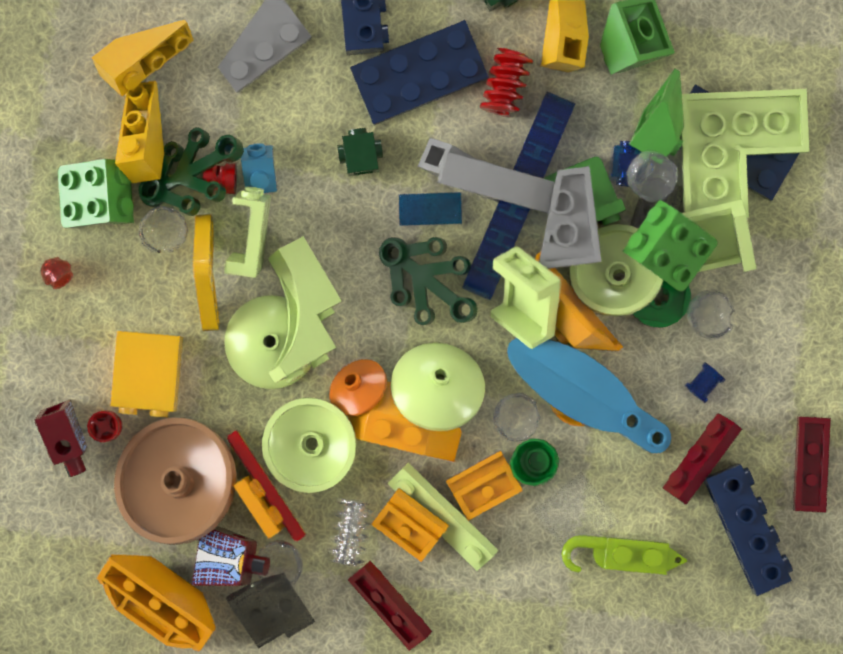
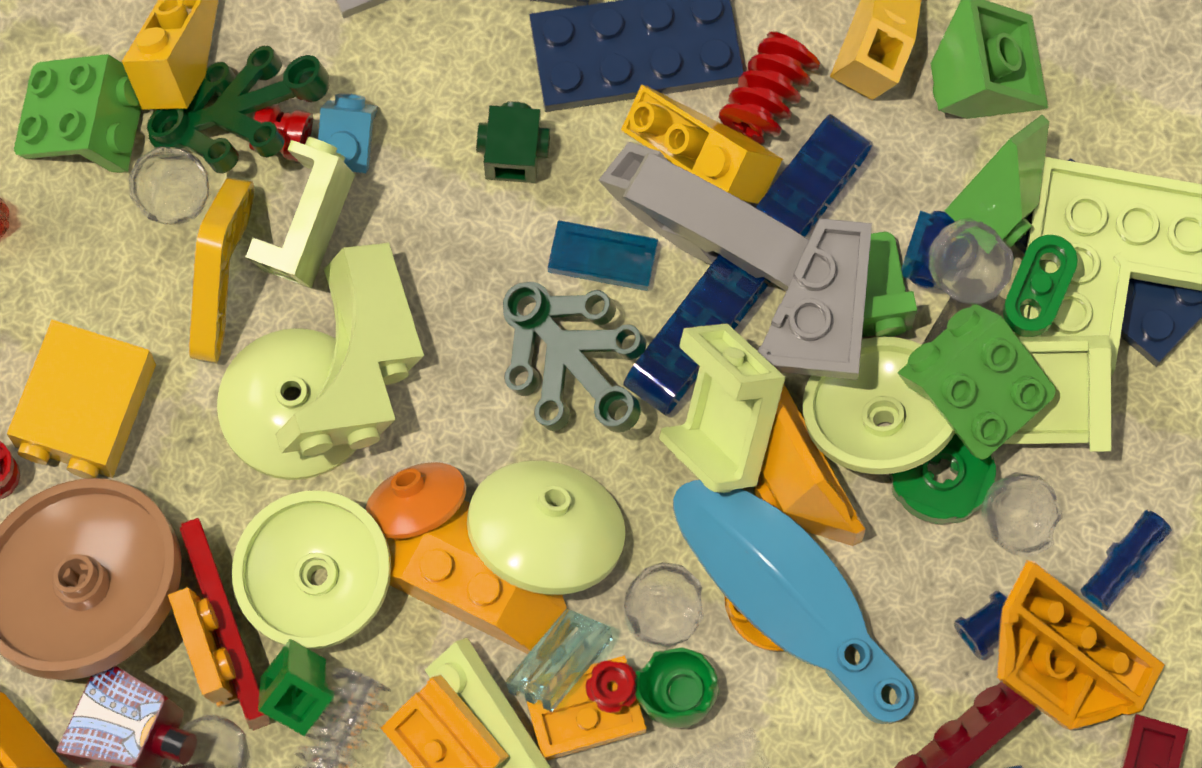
camera: 10 degrees right, 15 degrees down
(318, 517) = (295, 688): none -> green brick
(466, 486) = (567, 660): none -> clear light blue tile
(474, 130) = (701, 145): none -> yellow slope
(490, 476) = (609, 672): none -> red plate
(695, 179) = (1039, 288): none -> green plate
(756, 396) = (1069, 655): none -> light orange wedge
(775, 324) = (1126, 560): none -> clear blue pin

